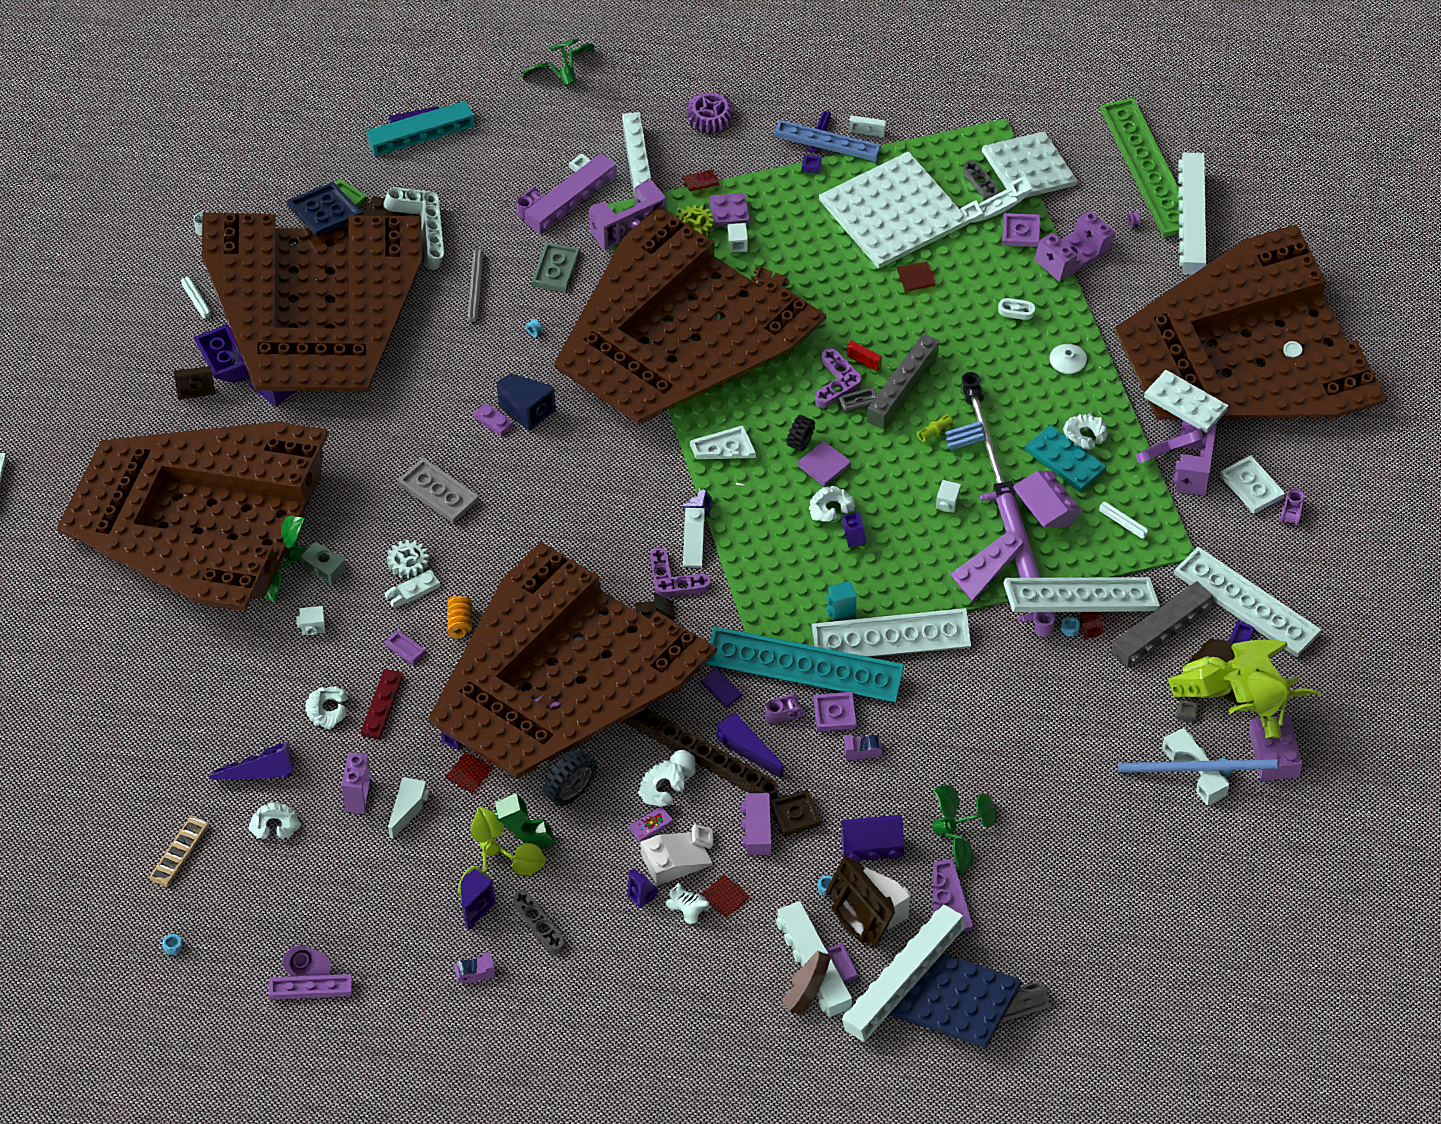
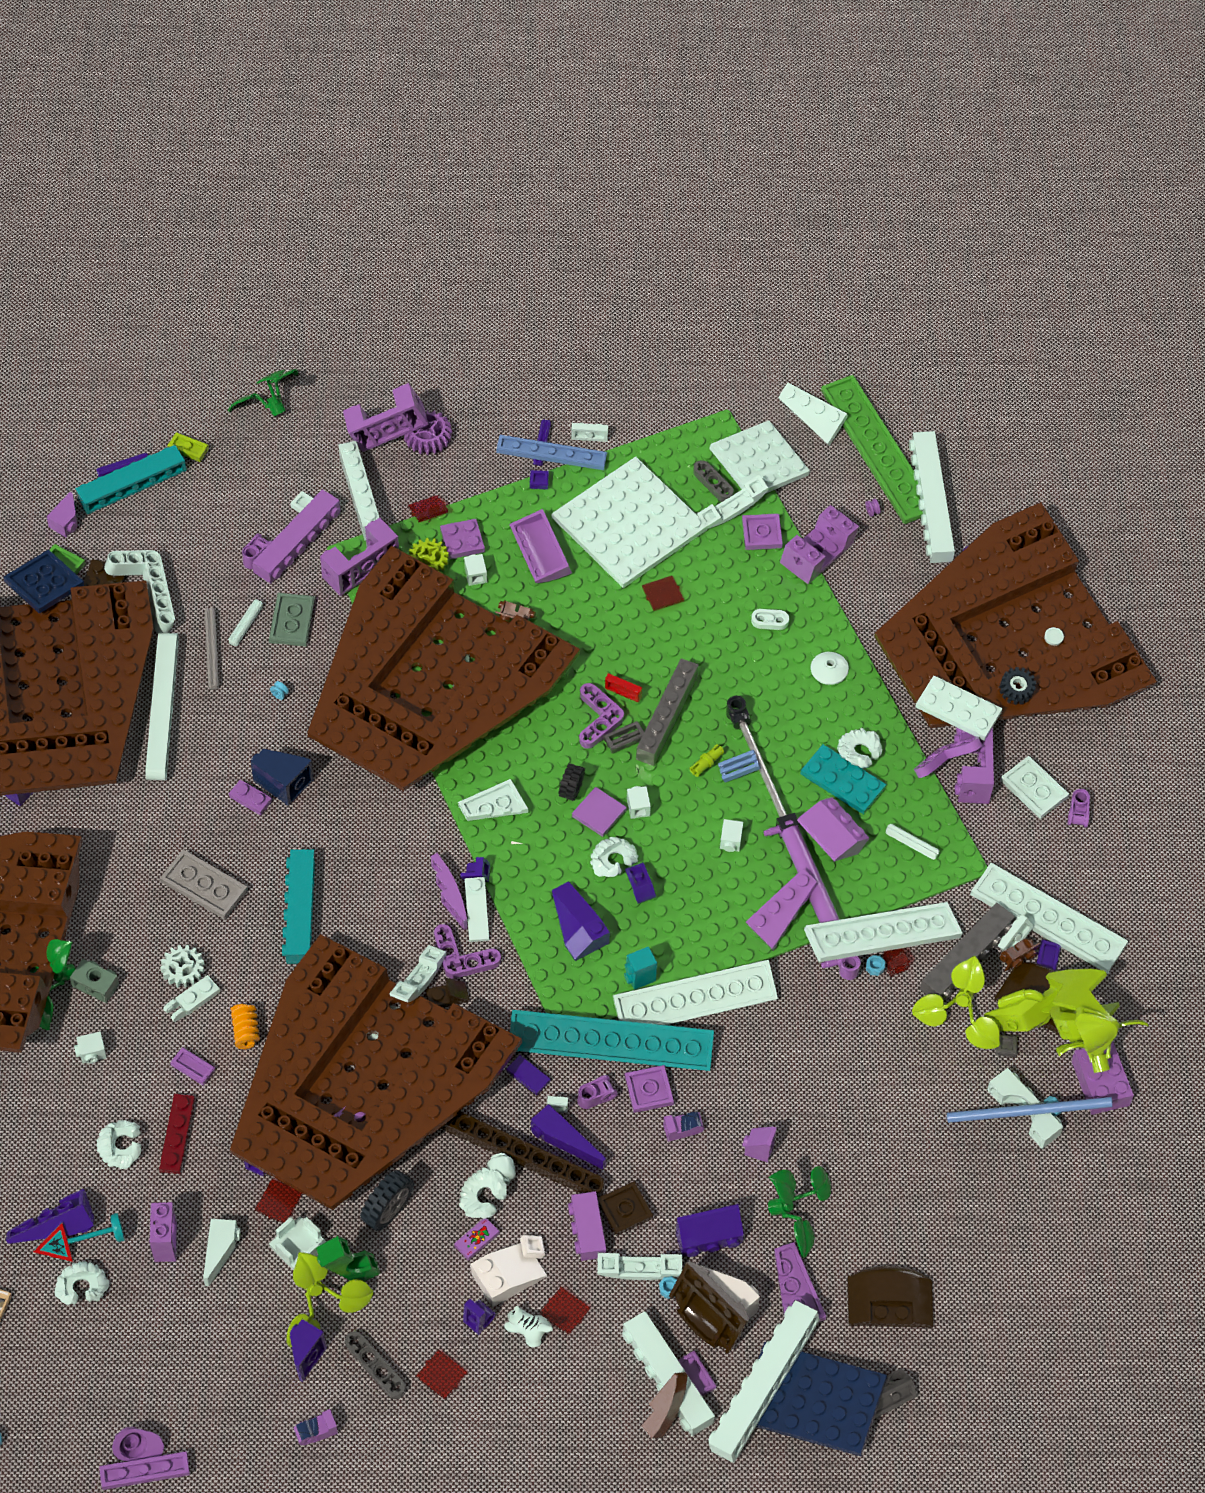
camera: 10 degrees left, 5 degrees up
(256, 783) = (57, 1243): none -> teal piece
(351, 155) = (63, 516): none -> medium lavender slope
(421, 331) = (162, 706): none -> light aqua beam
(474, 798) = (296, 1237): none -> light aqua panel
(480, 105) = (189, 447): none -> lime plate
(511, 265) = (245, 622): none -> light aqua axle
(526, 515) = (300, 904): none -> teal brick
(600, 937) = (441, 1374): none -> clear red piece
(631, 590) = (421, 975): none -> light aqua slope
(670, 520) = (450, 893): none -> medium lavender slope
(688, 95) = (403, 419): none -> medium lavender plate
(746, 714) = (560, 1104): none -> light aqua tile
(789, 559) = (580, 925): none -> dark purple wedge
(799, 866) = (639, 1267): none -> light aqua slope
(803, 224) = (540, 547): none -> medium lavender slope
(862, 458) = (638, 802): none -> light aqua brick
(933, 769) = (760, 1143): none -> medium lavender slope
(1038, 919) = (890, 1298): none -> dark brown slope
(1090, 128) = (815, 413): none -> light aqua wing
(1118, 671) = (970, 979): none -> lime plant
(1211, 613) = (1018, 932): none -> light aqua plate
(1219, 628) = (1014, 958): none -> reddish brown hinge
(1254, 381) = (1010, 691): none -> black bush

